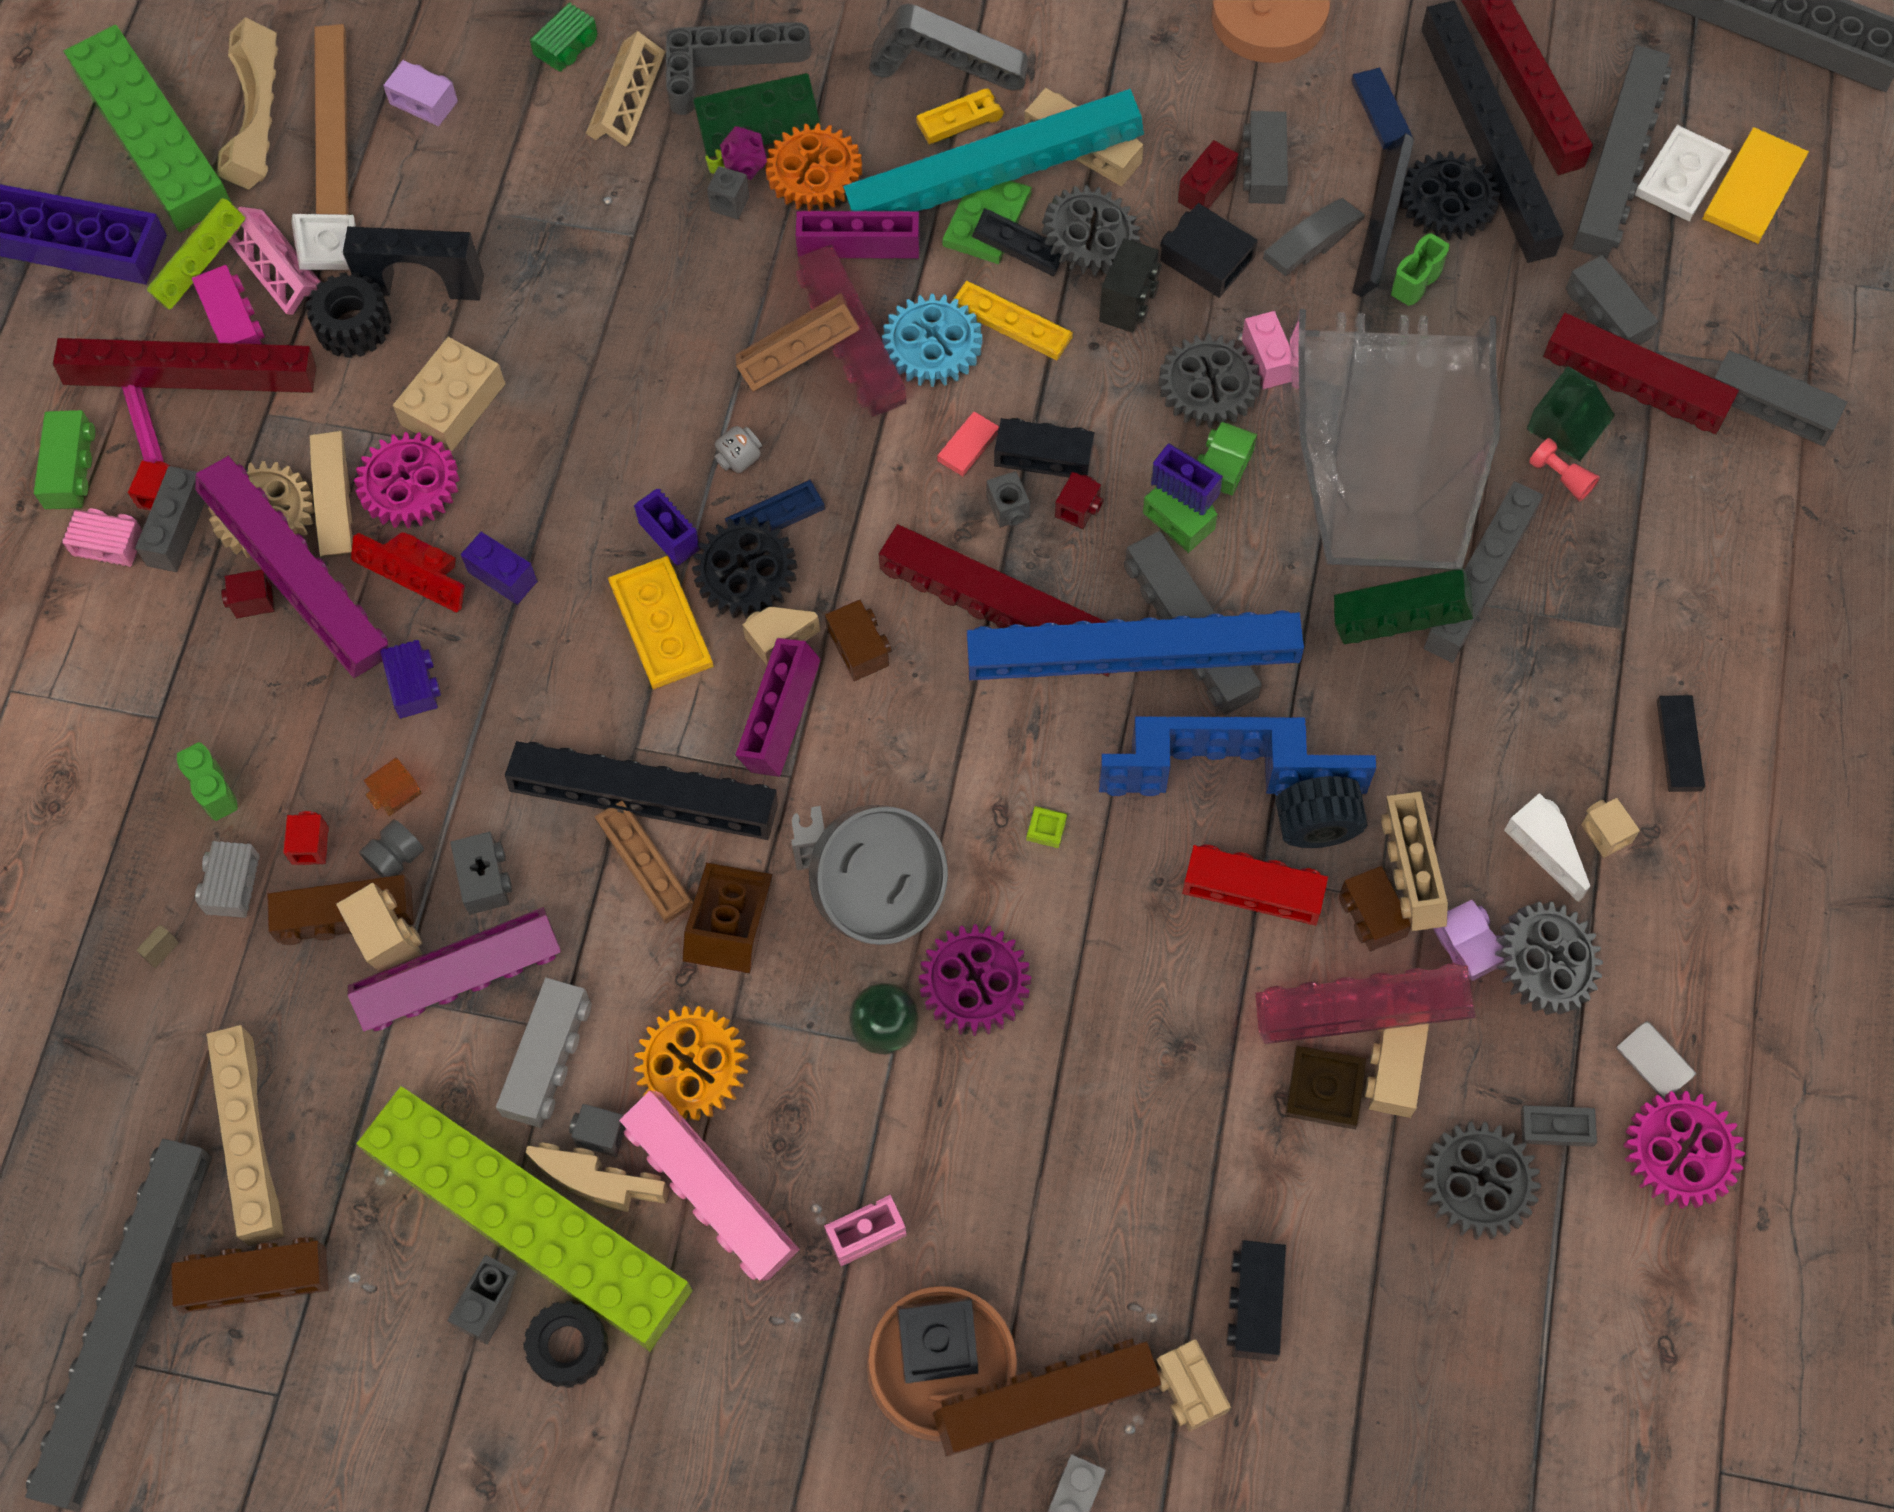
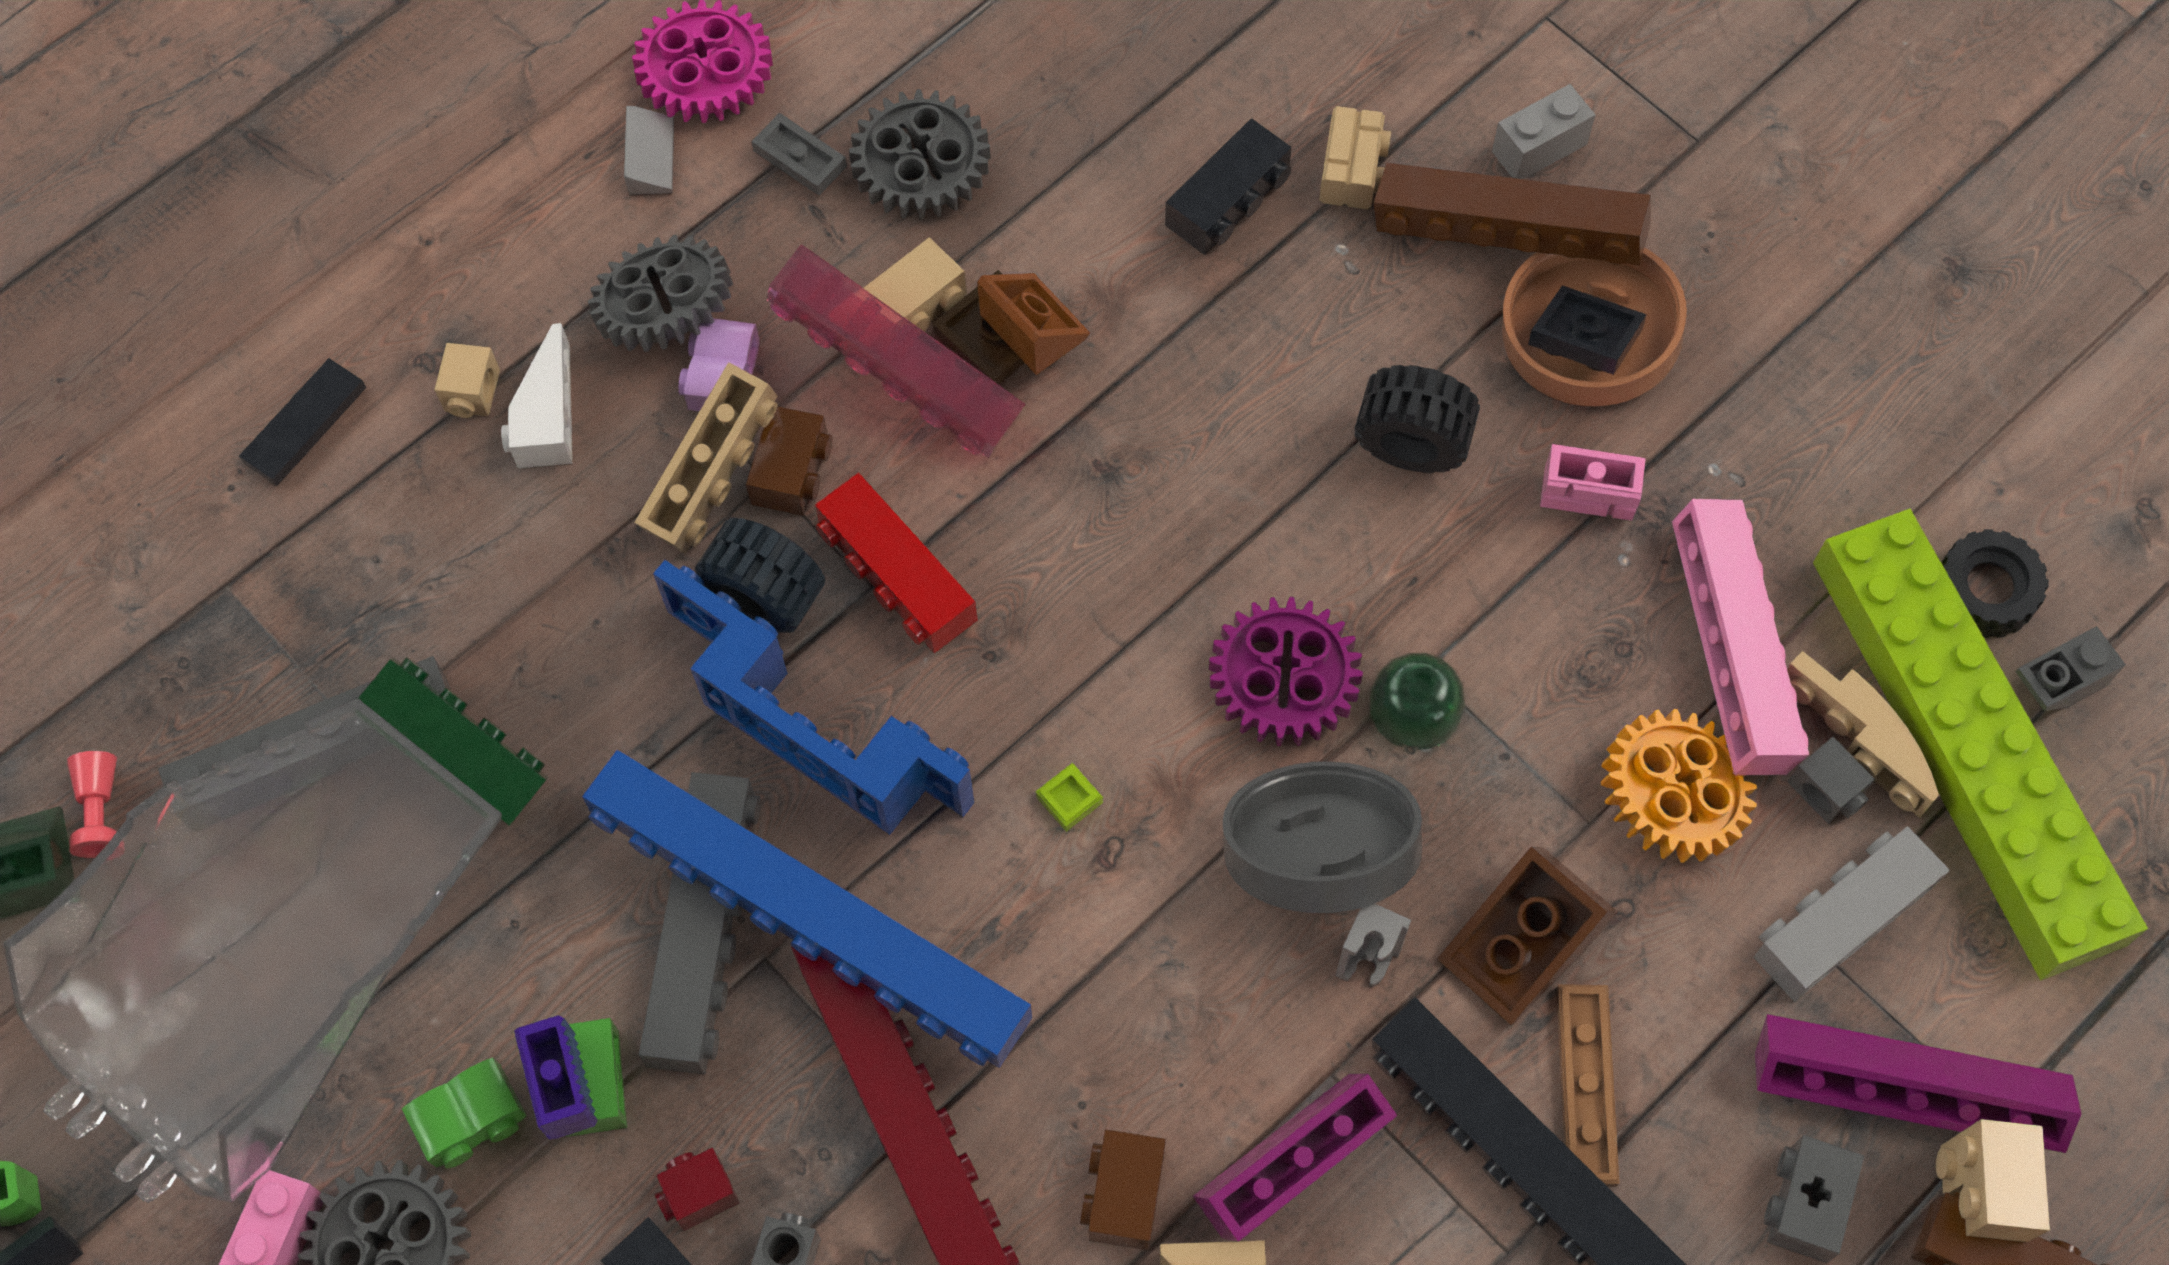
camera: 145 degrees left, 0 degrees up
(1004, 1187) = (1417, 419): none -> black tyre
(1304, 1094) = (1029, 318): none -> dark orange slope

